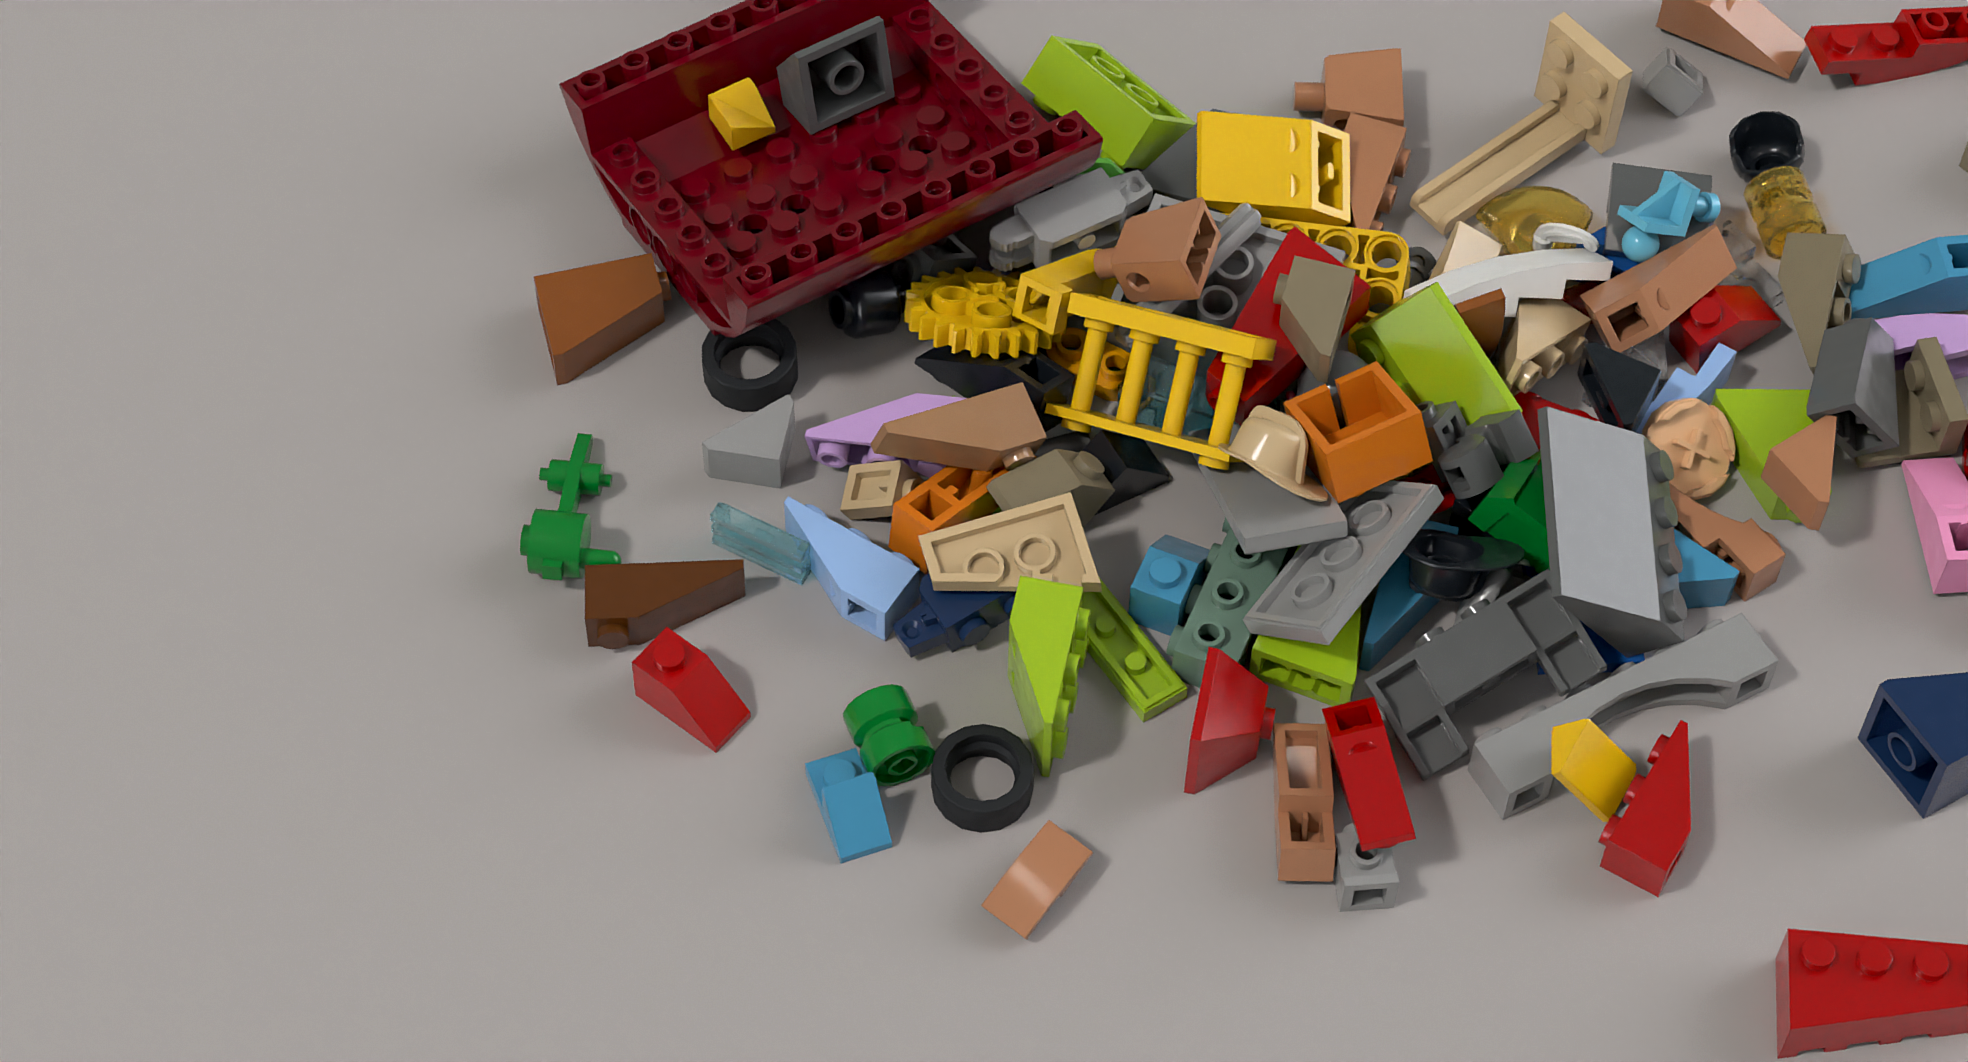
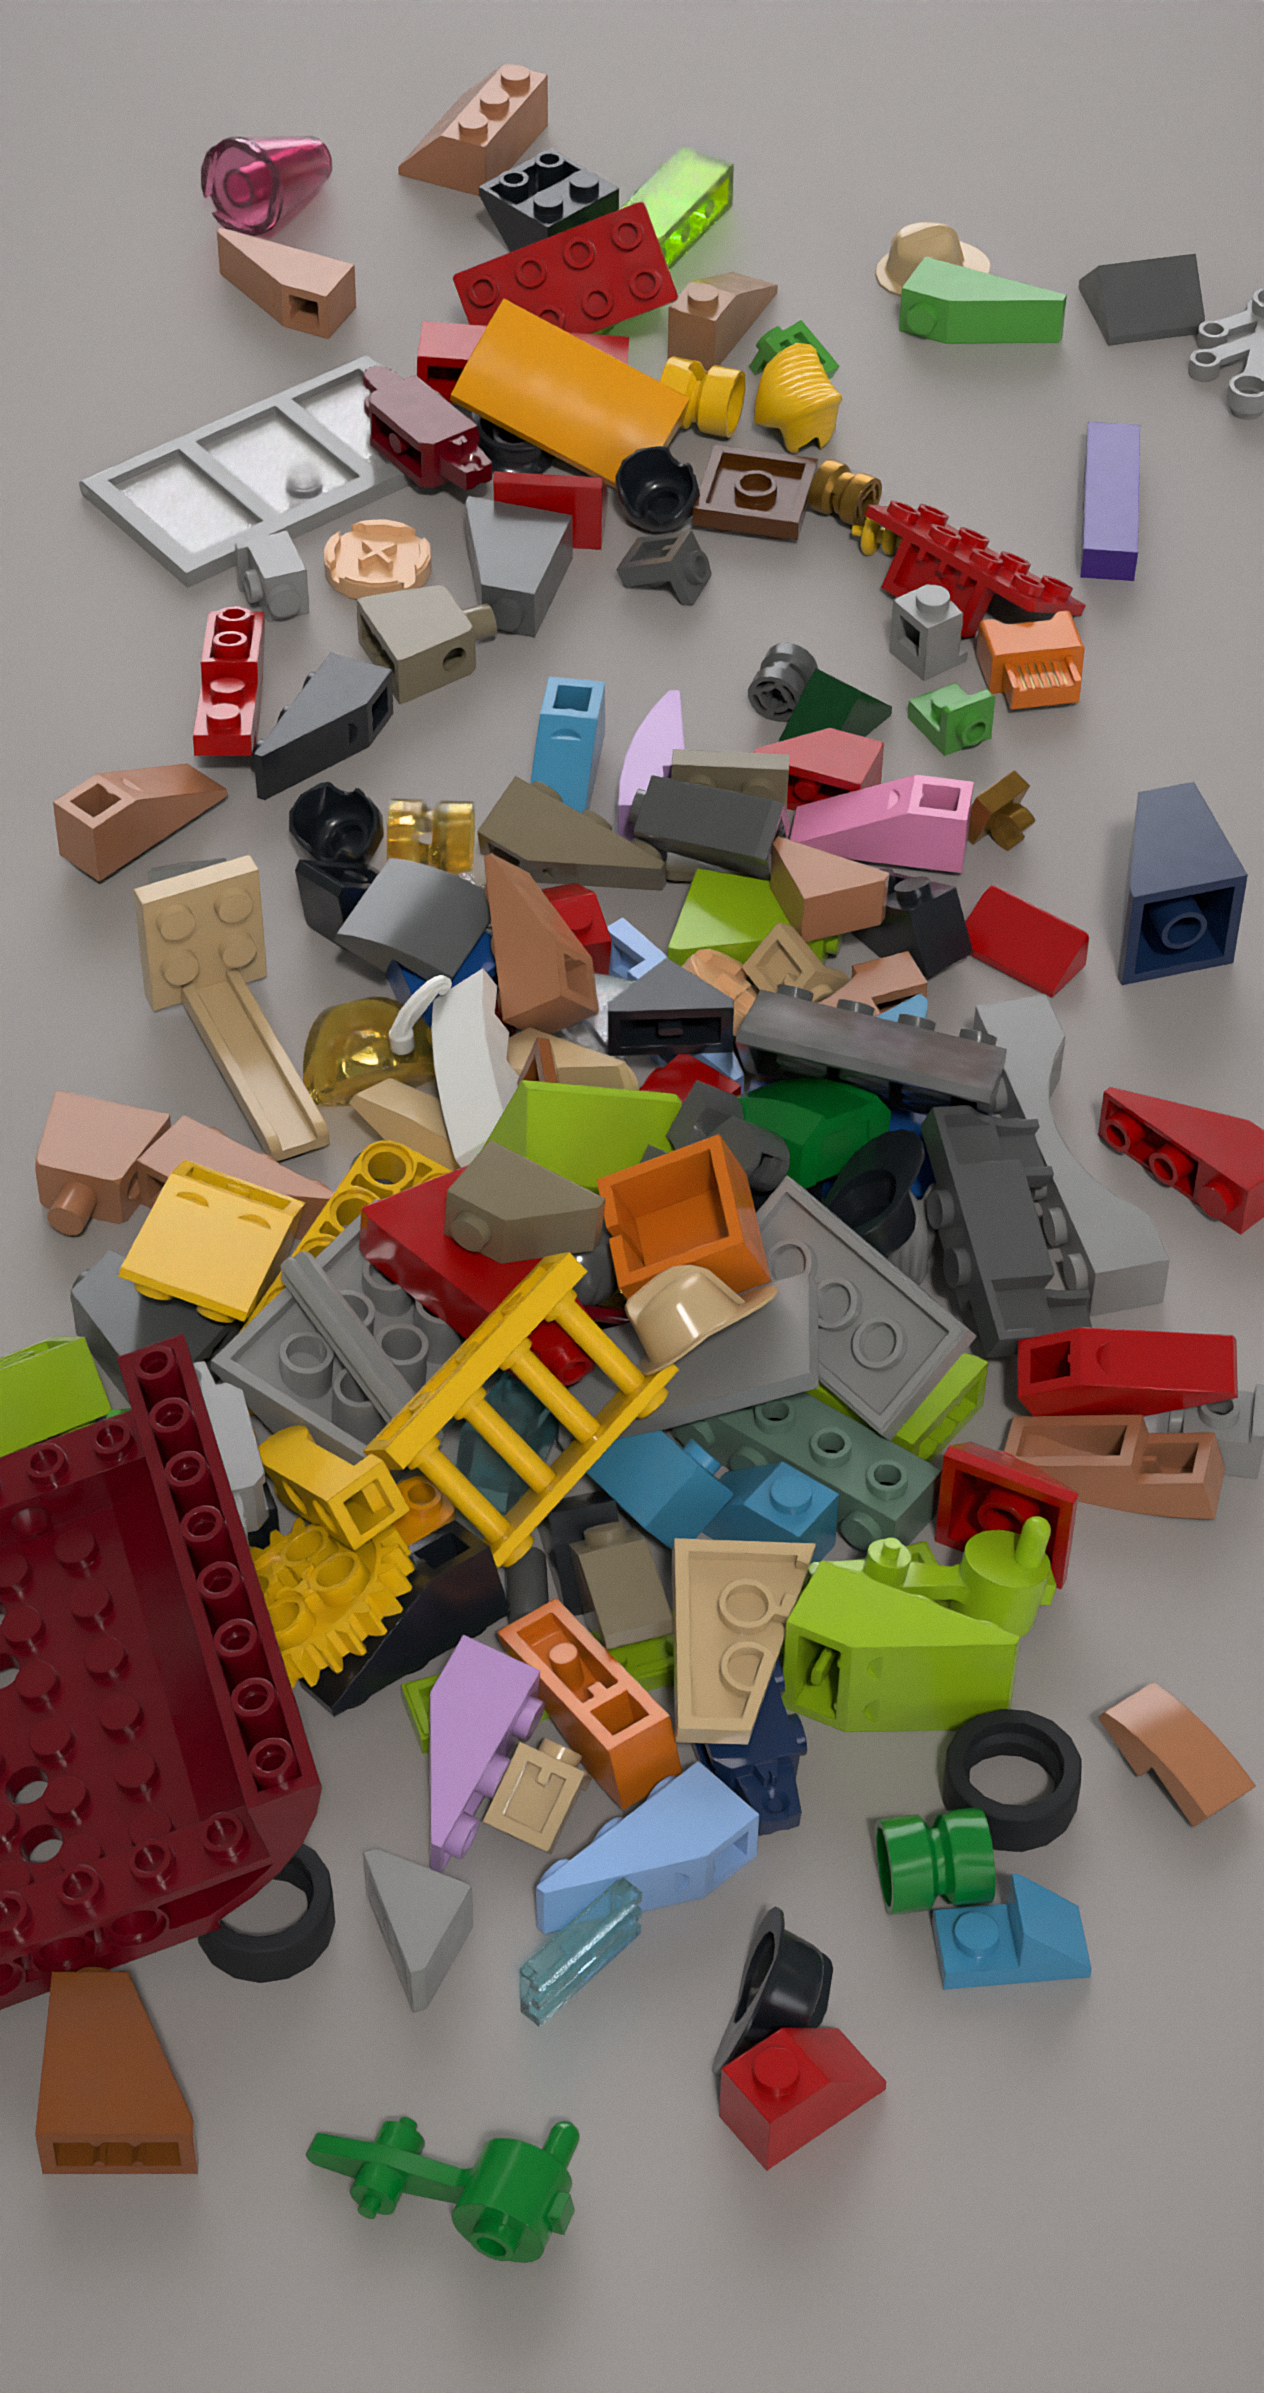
camera: 75 degrees left, 10 degrees down
(641, 599) = (637, 2118): reddish brown slope -> none
(753, 662) = (780, 1987): none -> black piece
(969, 433) = (531, 1618): medium nougat slope -> none
(1148, 723) = (997, 1581): none -> lime piece
(1154, 497) = (663, 1484): none -> dark azure slope
(1163, 253) = (346, 1353): nougat torso -> none
(1591, 766) = (1146, 1185): yellow slope -> none
(1666, 214) = (453, 898): medium azure piece -> none
(1690, 153) = (331, 892): none -> black slope
(1727, 479) = (789, 961): none -> tan bracket
(1846, 547) = (921, 920): none -> black slope
(1860, 650) = (1026, 941): none -> red slope
(1891, 115) = (328, 722): none -> black slope

